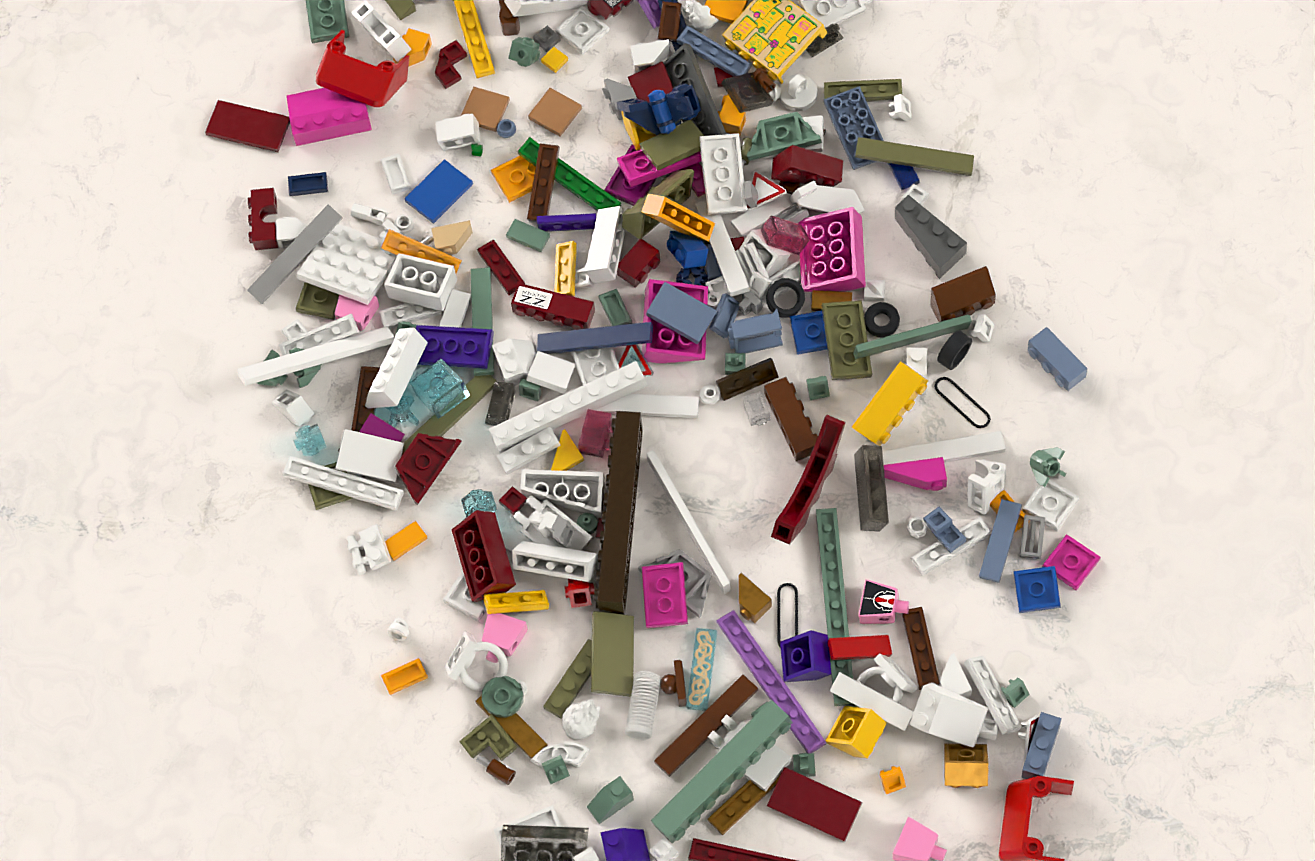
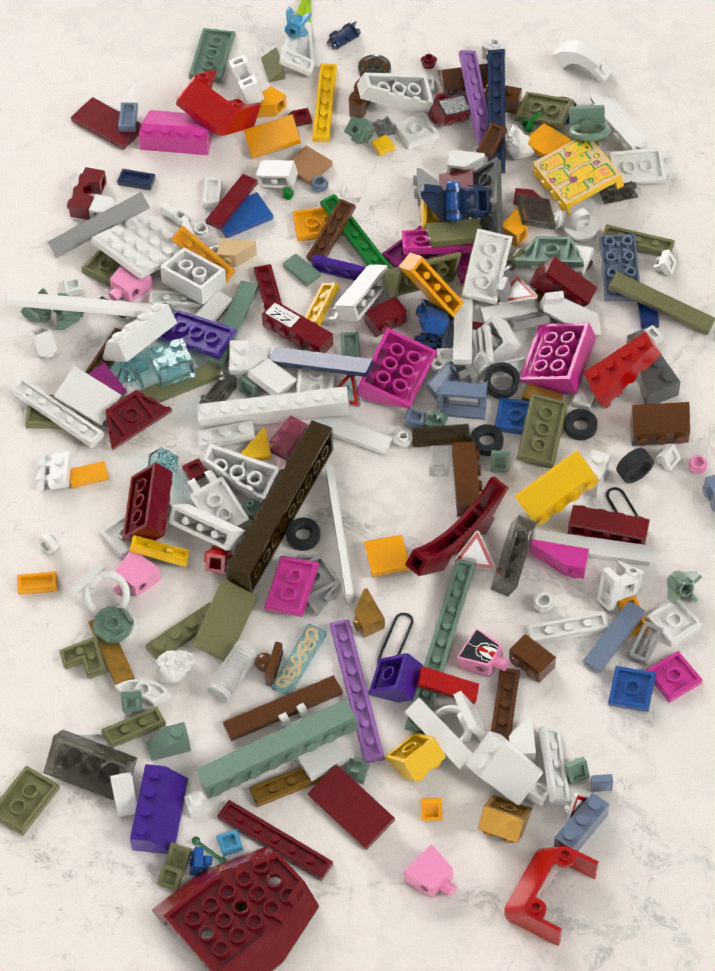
camera: 15 degrees right, 10 degrees down
(268, 113) = (128, 117): none -> sand blue tile
(309, 440) = (50, 367): clear light blue brick -> none
(330, 332) = (104, 291): white tile -> none
(423, 180) = (231, 201): none -> dark red tile
(433, 87) = (272, 136): none -> light orange tile
(497, 769) = (81, 684): reddish brown piece -> none
(553, 524) = (216, 497): hips -> none
(555, 112) = (366, 183): medium nougat tile -> none
(568, 796) = (133, 727): none -> olive tile
(651, 521) = (303, 544): none -> black tyre
(681, 312) = (403, 362): sand blue tile -> none
(712, 368) = (414, 418): none -> sand blue tile
(714, 52) = (519, 174): sand blue tile -> none
(744, 529) = (386, 555): none -> light orange tile
(760, 75) = (552, 202): reddish brown pin -> none
(784, 235) = (520, 329): clear pink brick -> none
(795, 356) = (490, 430): none -> black tyre
(832, 497) = (476, 551): none -> piece
(903, 247) = (621, 368): none -> red wedge
(912, 336) = (599, 443): sand green tile -> none
(929, 591) = (532, 658): none -> reddish brown brick
(944, 530) = (566, 610): sand blue slope -> none
(950, 423) = (607, 525): none -> dark red brick
(1013, 326) = (697, 464): none -> bright pink plate
(1044, 697) = (601, 782): none -> sand blue tile

